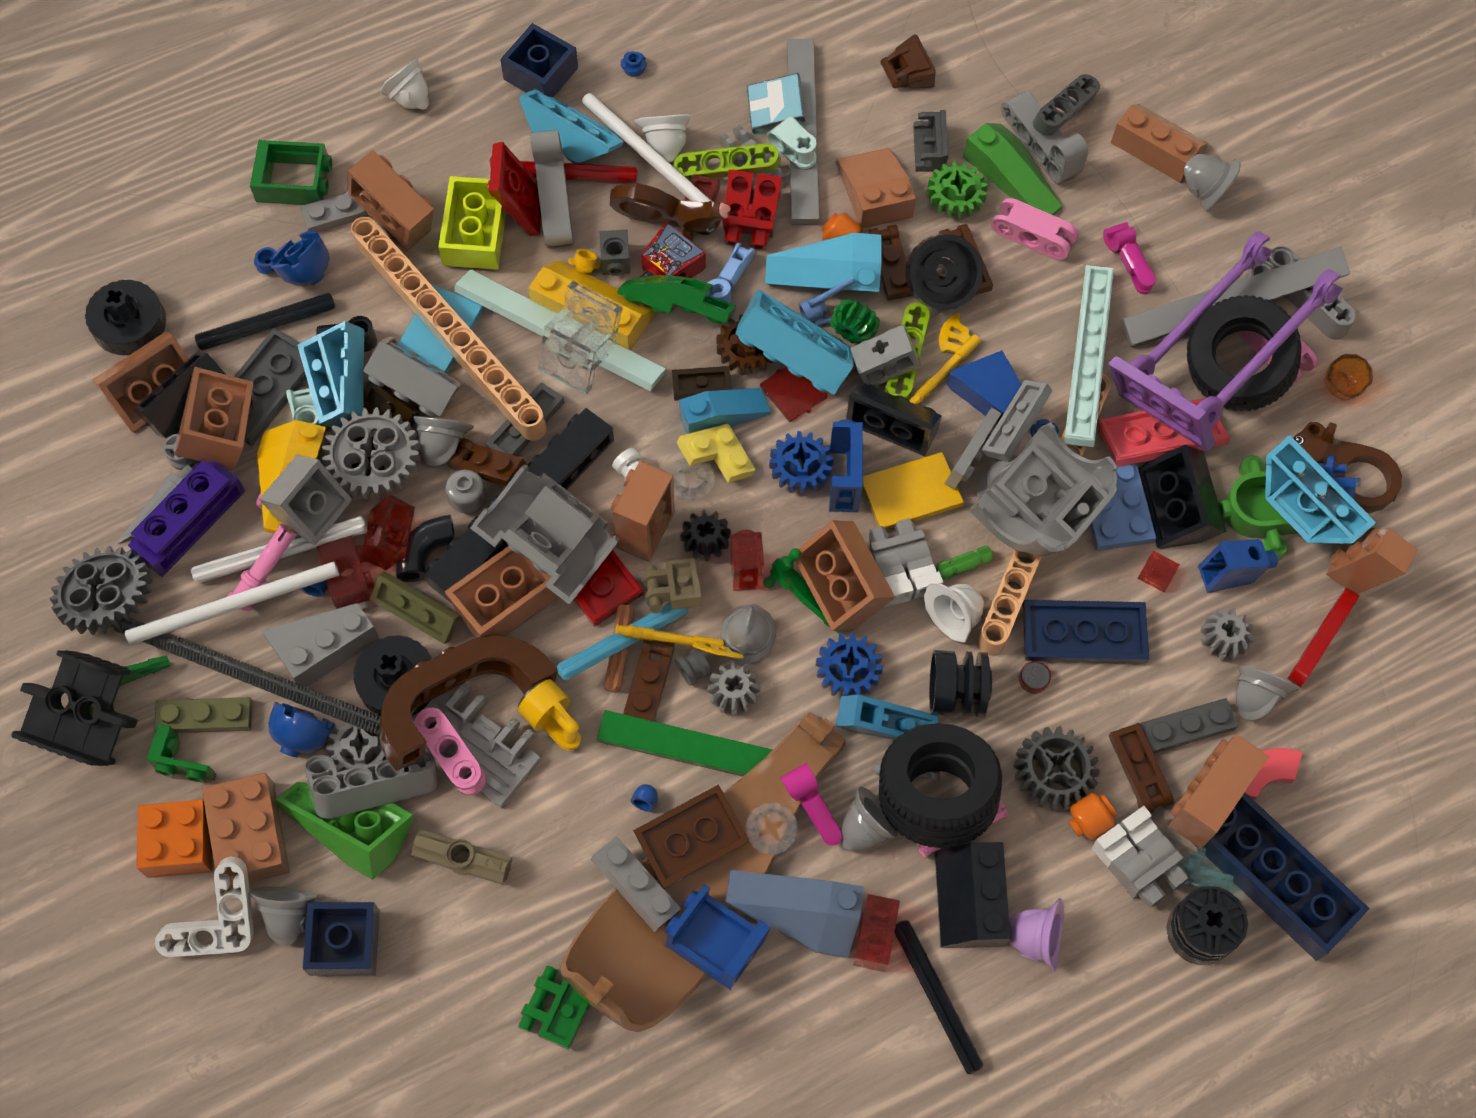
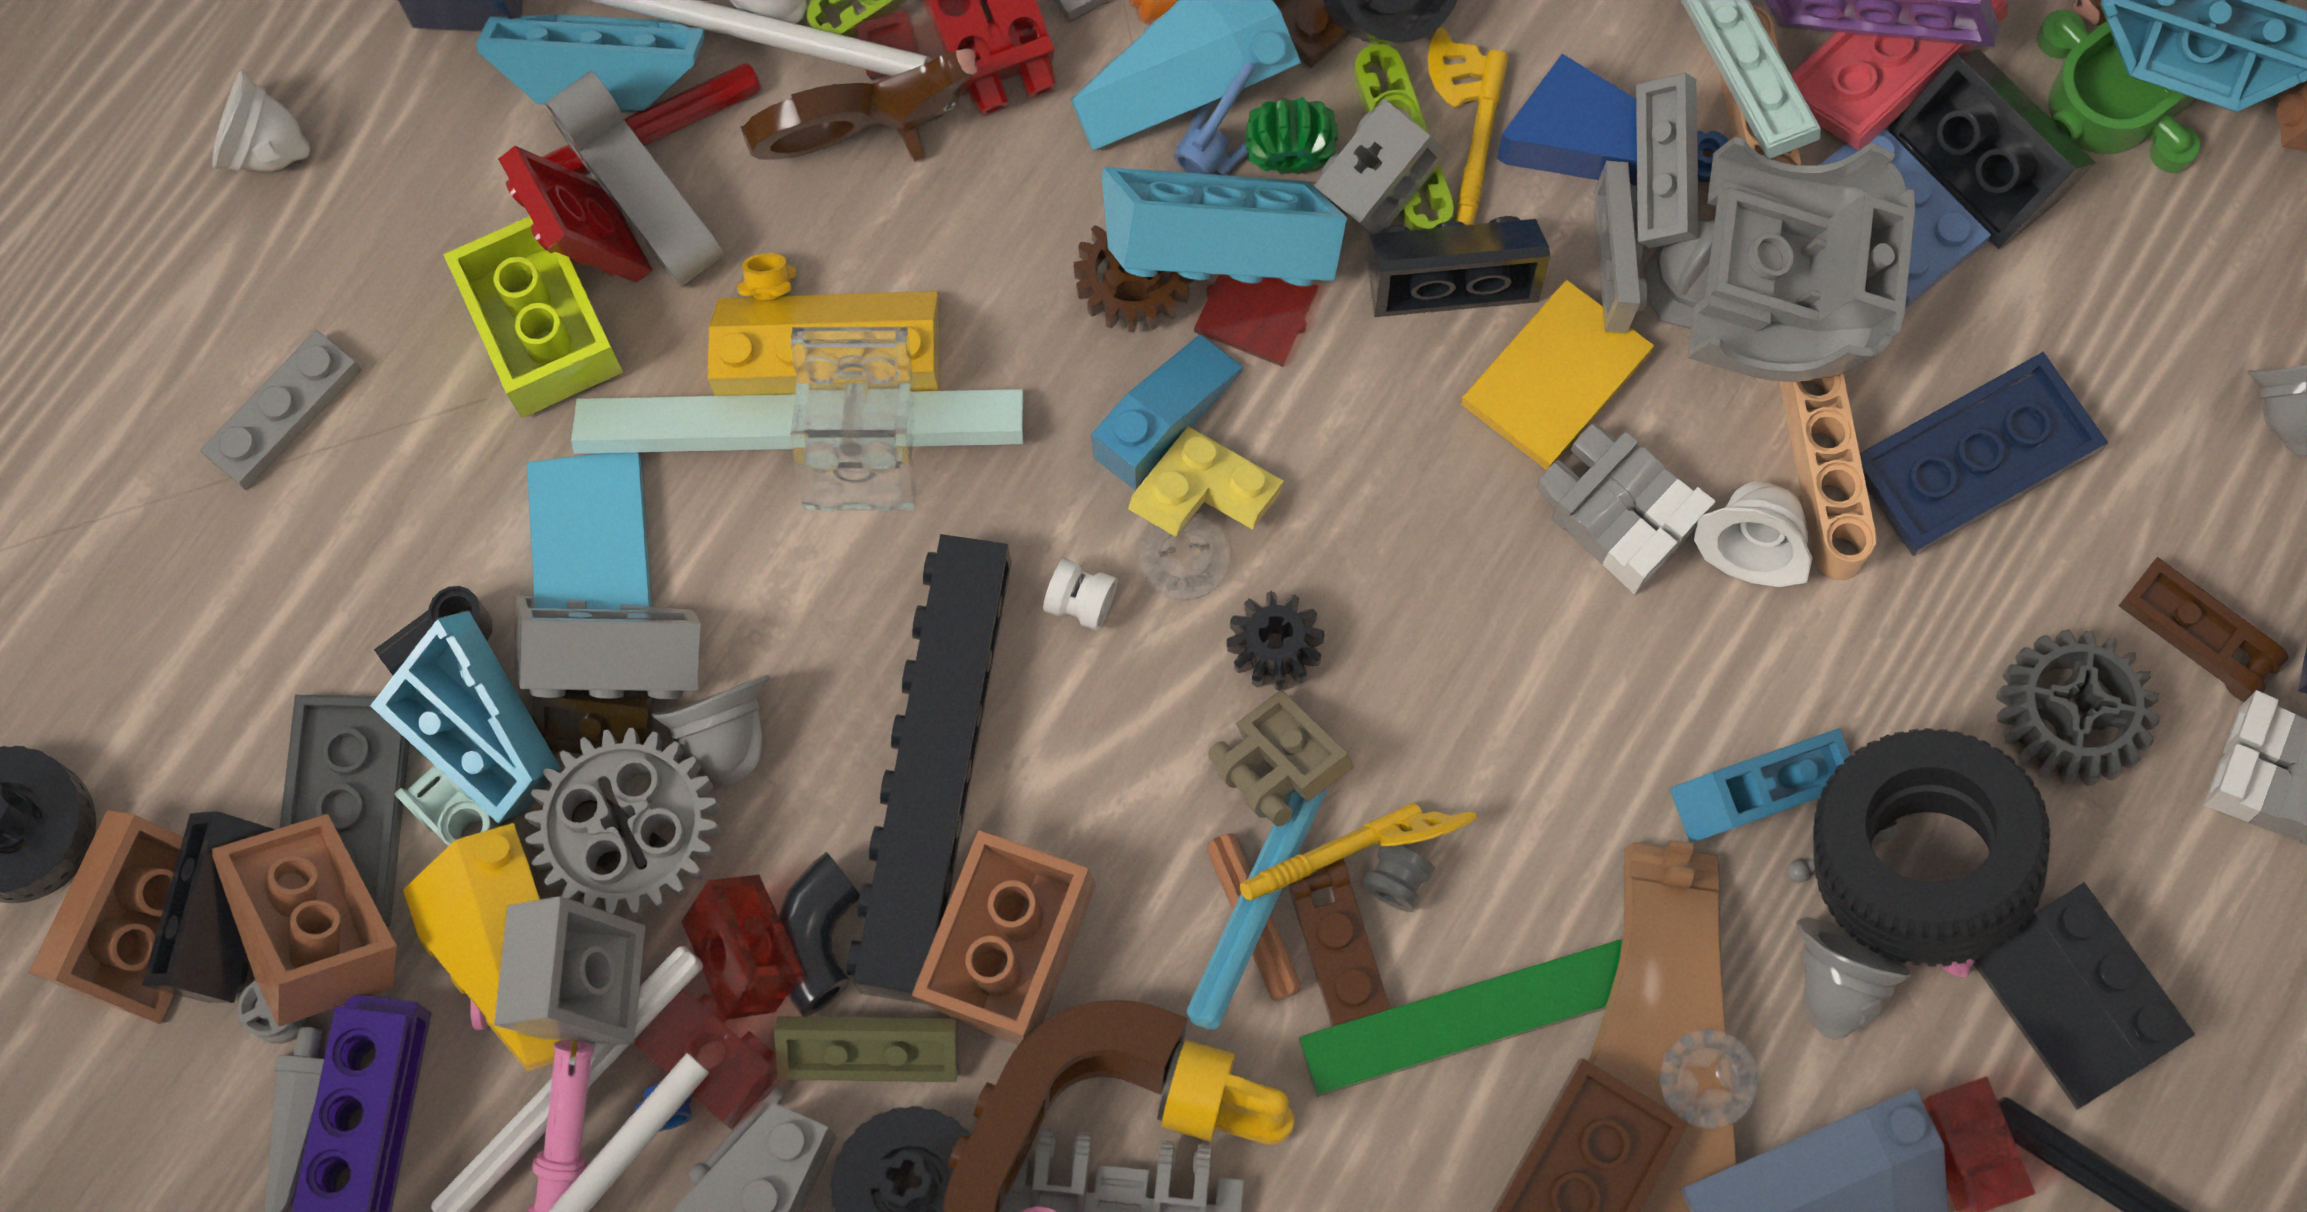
camera: 25 degrees left, 5 degrees up
(263, 256) = (194, 570): blue plate -> none
(264, 321) = (269, 692): black axle -> none
(289, 152) = (123, 360): green window -> none
(302, 261) = (271, 545): blue cylinder -> none
(372, 242) = (628, 537): light nougat beam -> none
(390, 199) = (364, 353): nougat brick -> none
(465, 491) = (825, 796): light grey head -> none
(487, 462) = (834, 726): reddish brown plate -> none
(508, 438) = (846, 618): dark grey plate -> none
(548, 529) = (1026, 787): light grey piece -> none
(608, 589) = (1154, 826): red tile -> none
(614, 243) = (806, 213): dark grey brick -> none
(643, 510) = (1158, 661): nougat brick -> none
(645, 798) = (1460, 1145): blue hinge -> none
(669, 291) = (946, 255): green slope -> none
(672, 255) = (911, 195): torso -> none
(698, 380) = (1097, 381): dark brown plate -> none
(731, 272) = (1028, 174): light blue piece -> none
(739, 697) = (1509, 886): light grey gear -> none
(747, 560) = (1378, 646): clear red brick -> none
(748, 632) = (1445, 764): light grey piece -> none
(790, 579) = (1446, 630): green piece -> none
(804, 787) = (1721, 982): dark pink piece -> none
(814, 458) = (1346, 449): blue gear -> none
(836, 664) = (1669, 718): blue gear -> none
(843, 576) = (1551, 583): nougat brick -> none
(847, 490) = (1468, 416): blue panel -> none
(959, 683) = (1848, 657): black wheel -> none
(965, 562) = (1718, 444): bright green axle -> none
(1034, 677) = (1945, 574): tile -> none
(1039, 933) = (2222, 997): lavender piece -> none
(1092, 816) = (2185, 754): orange head -> none
(1158, 571) = (2025, 288): clear red plate -> none
(1189, 725) = (2231, 514): dark grey plate -> none
(1236, 564) = (2157, 191): blue torso -> none
(1238, 634) = (2198, 331): light grey gear -> none

